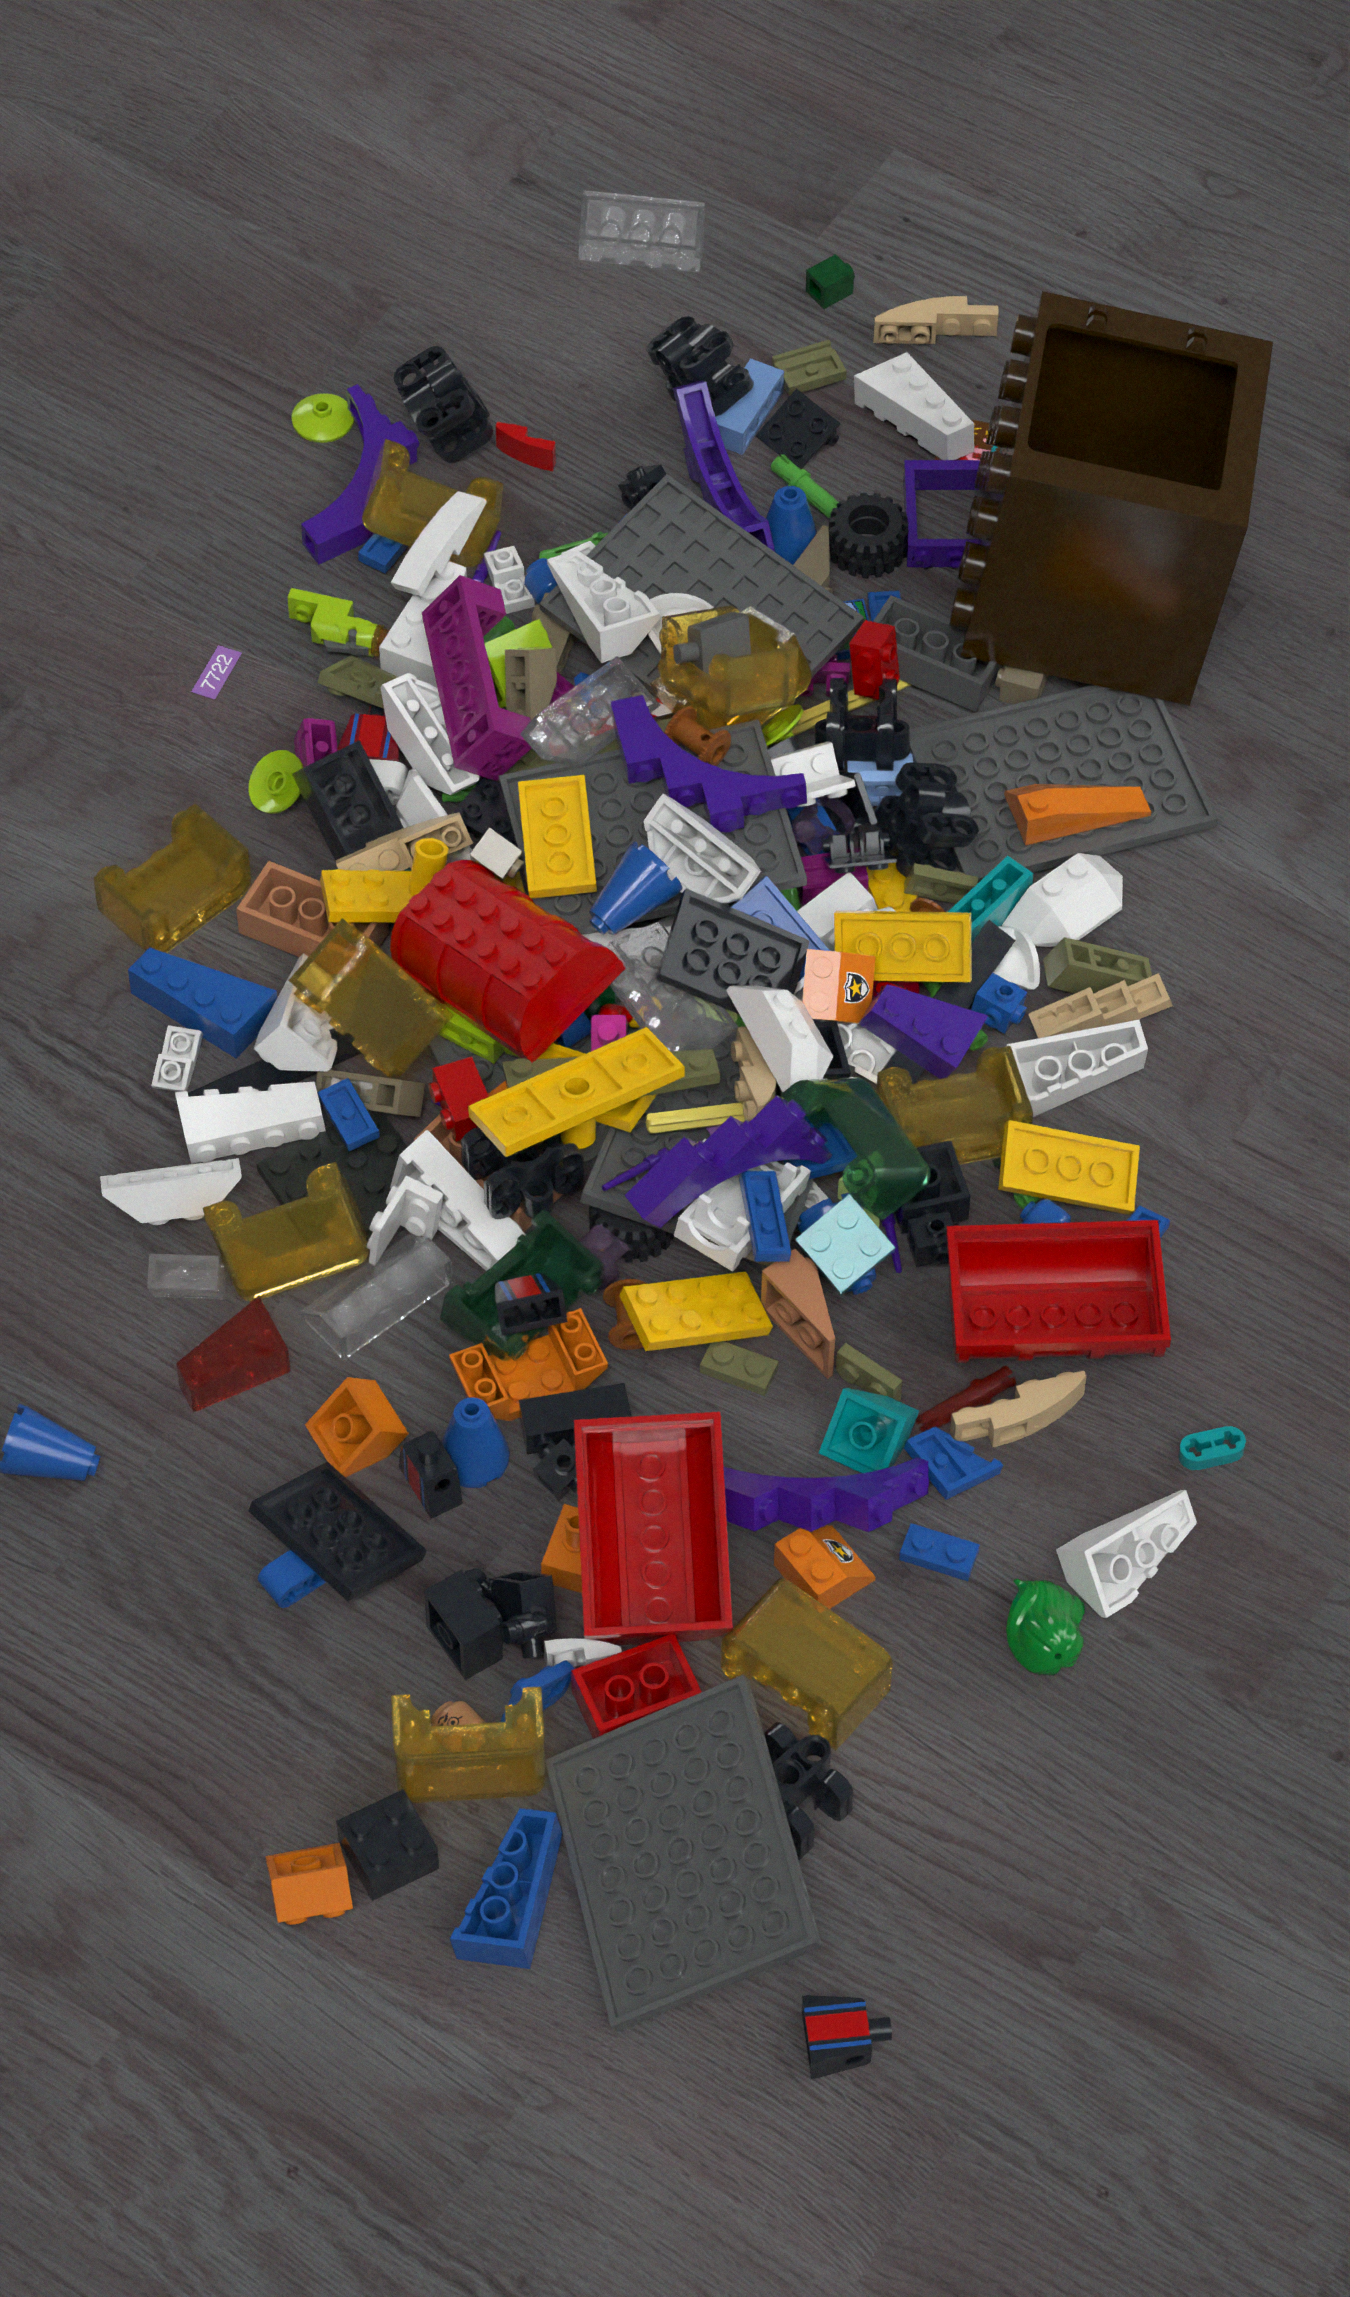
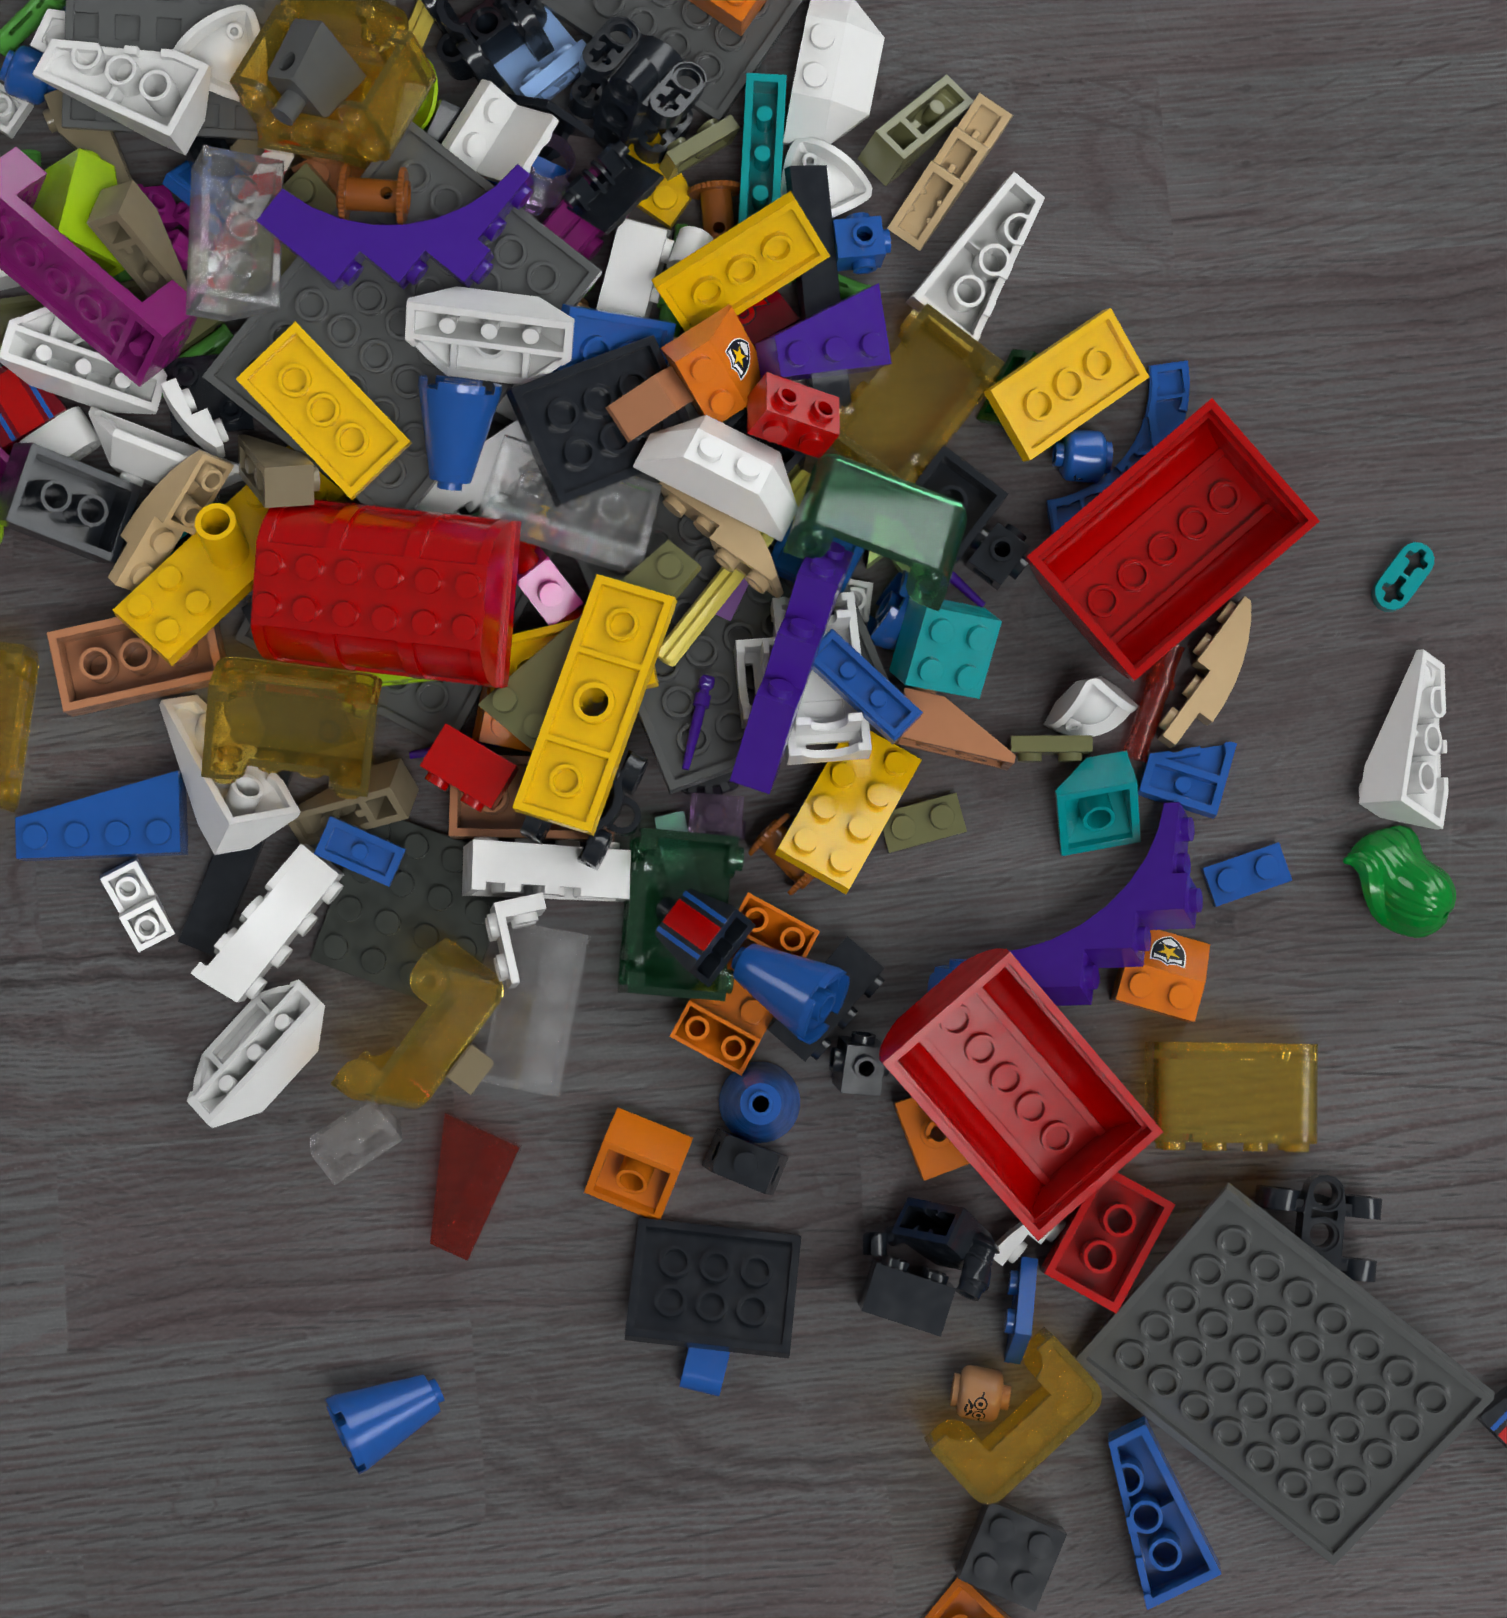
camera: 45 degrees left, 30 degrees up
(298, 1292) = (470, 1068): none -> dark tan slope
(473, 805) = (199, 426): none -> white slope
(560, 1378) = (792, 988): none -> blue cone
(772, 966) = (649, 403): none -> nougat slope
(860, 1040) = (793, 415): none -> red brick
(921, 1368) = (1090, 708): none -> white hat

